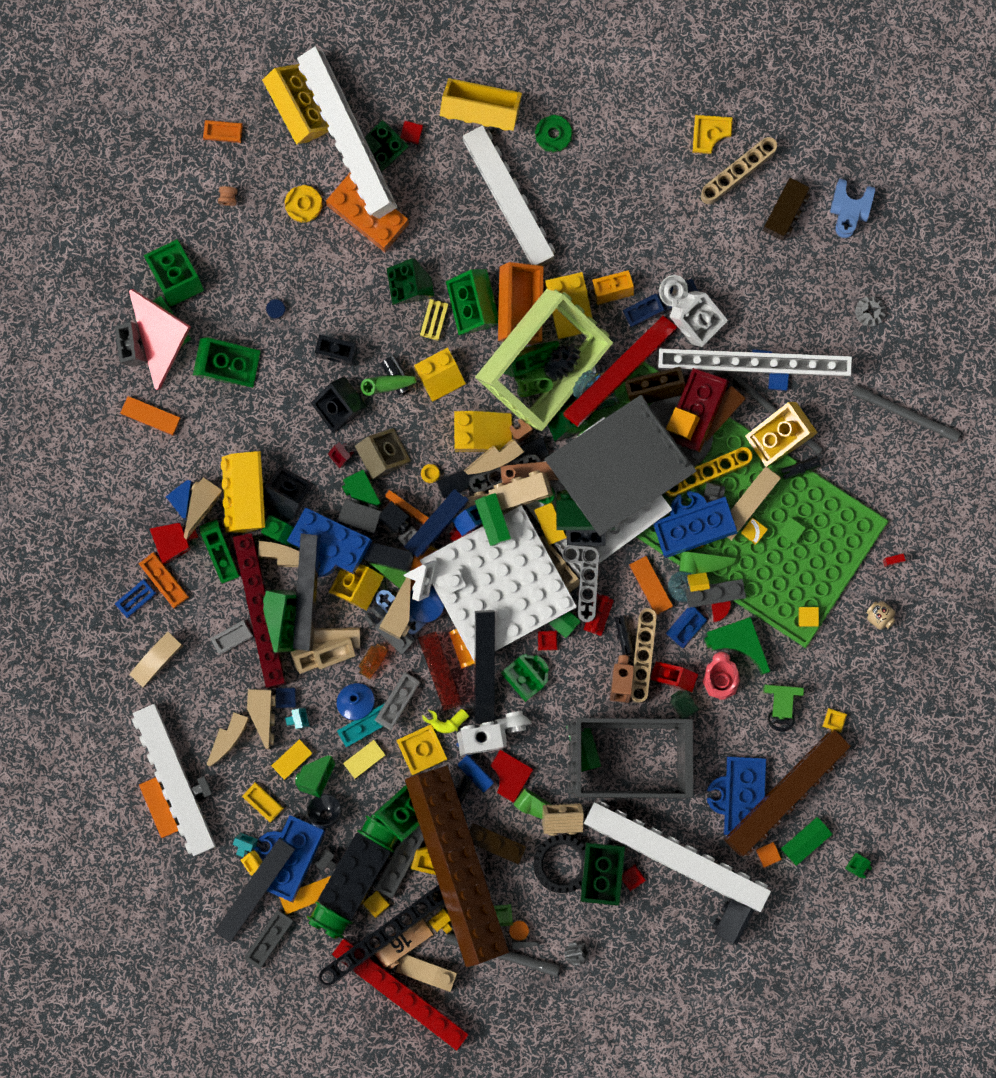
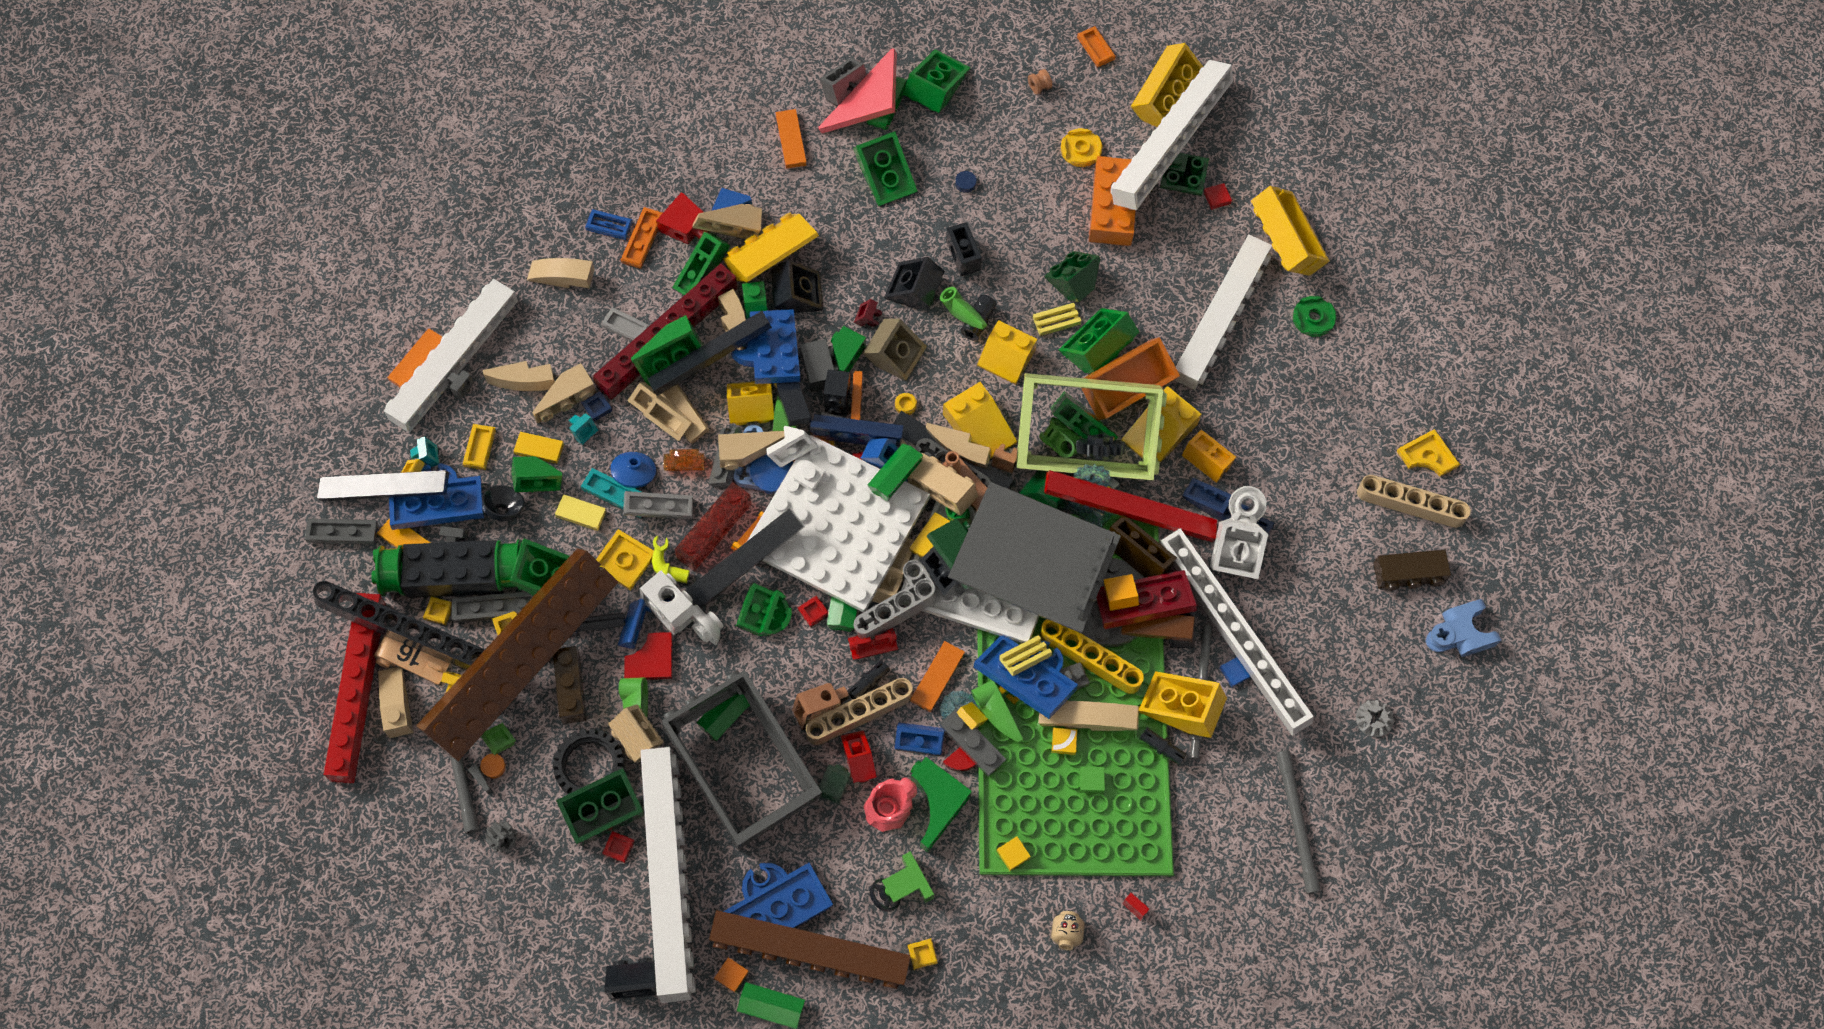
camera: 55 degrees right, 15 degrees down
(681, 502) = (1022, 653): none -> light yellow tile

